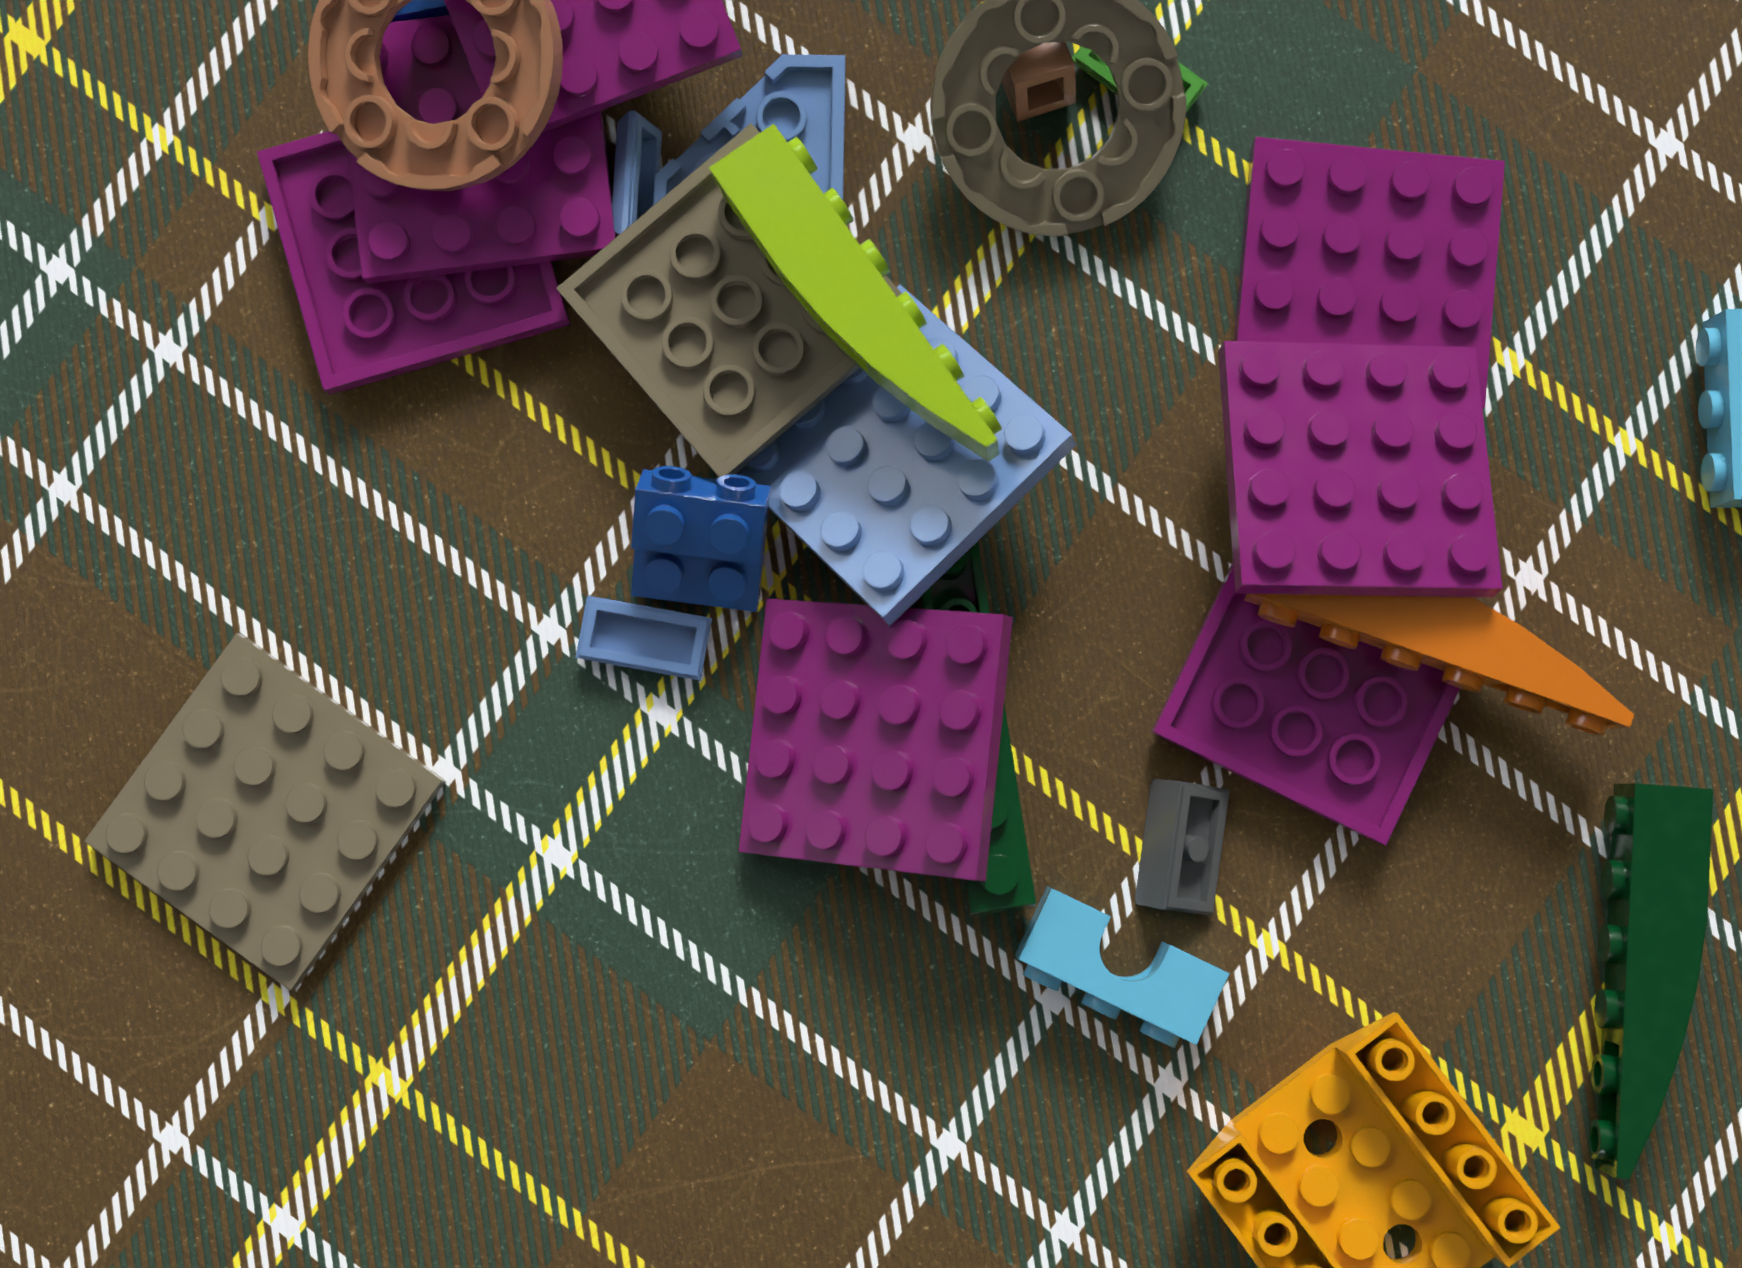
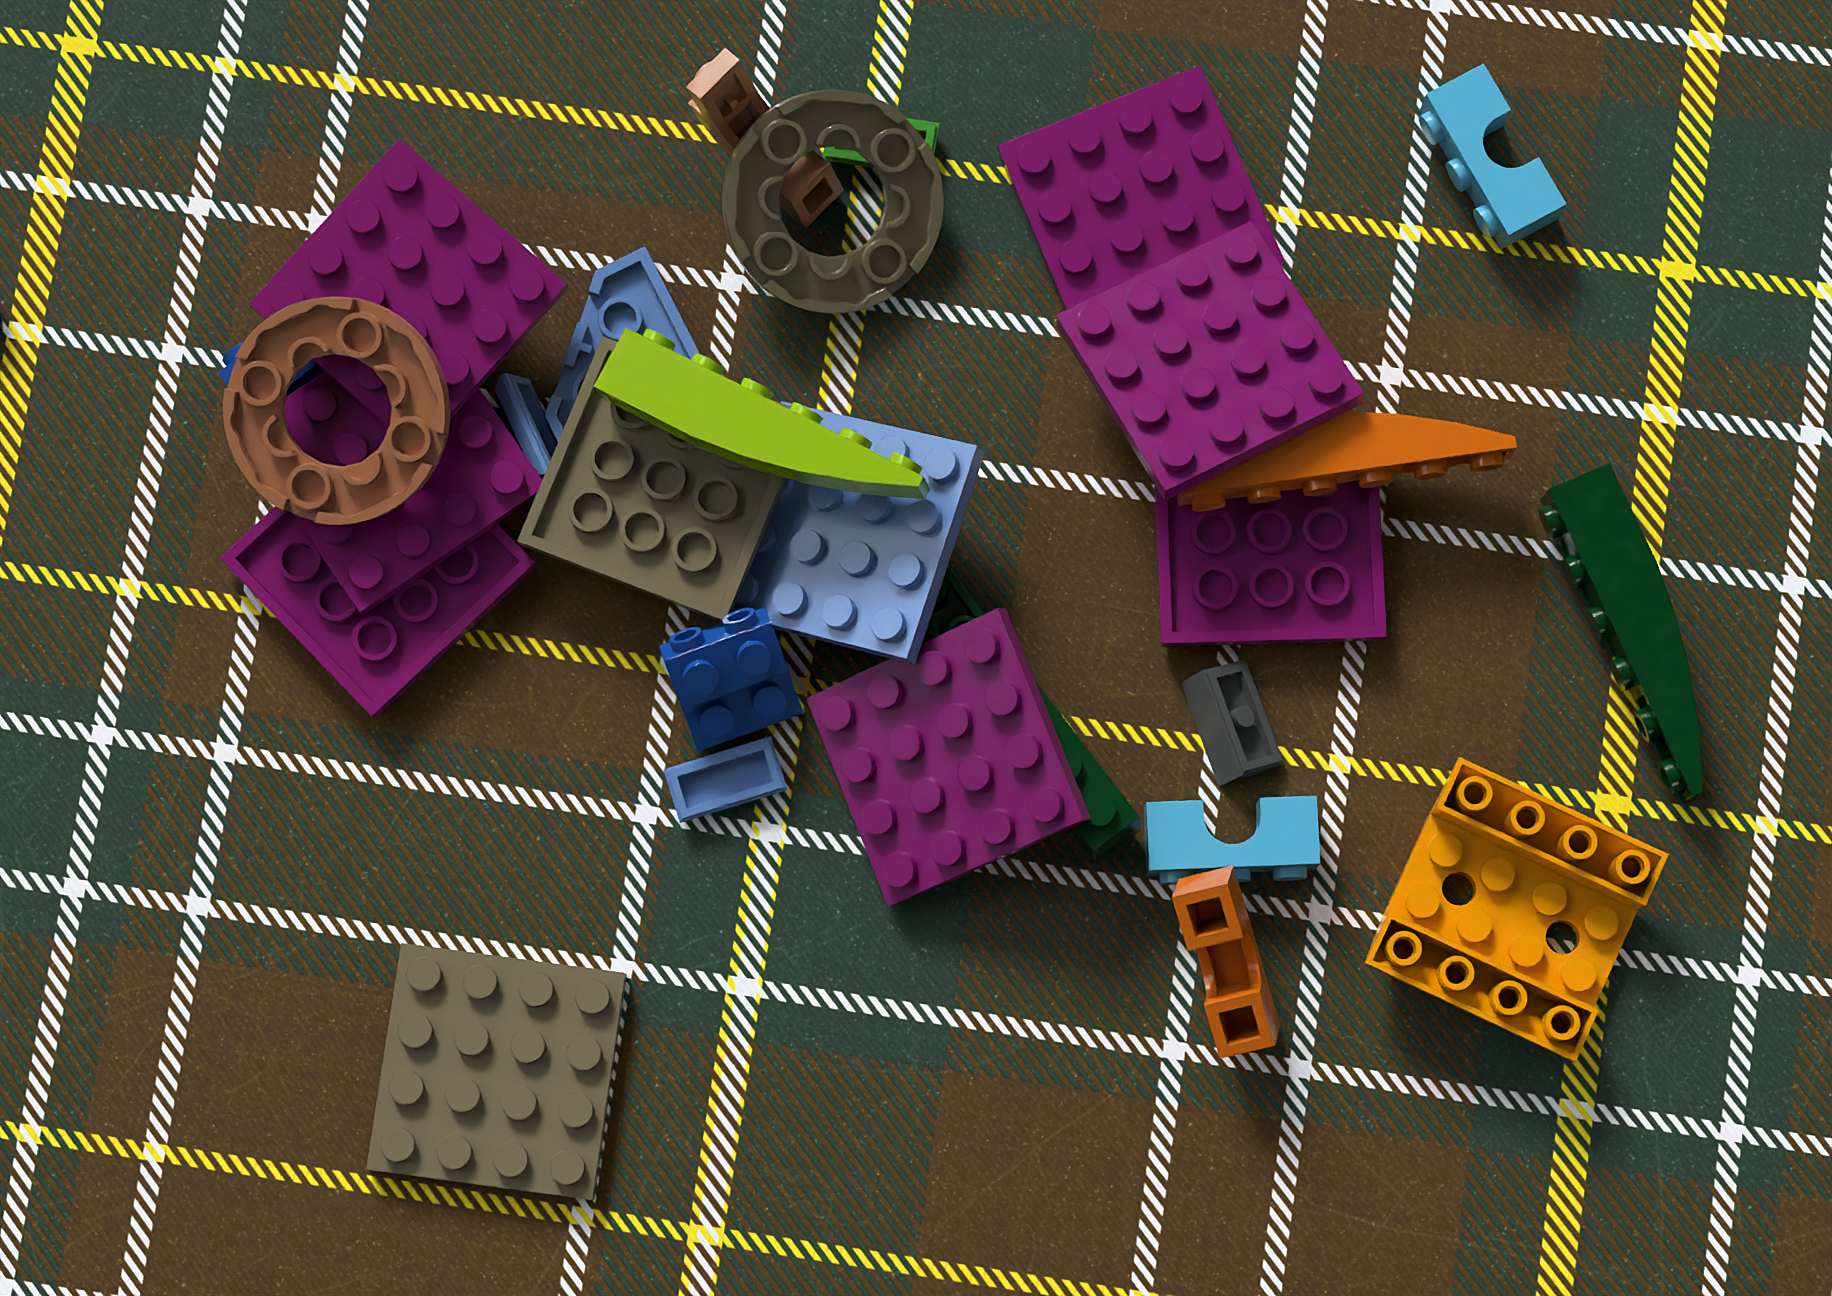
camera: 25 degrees left, 5 degrees down
(1055, 1068) = (1234, 978): none -> orange arch

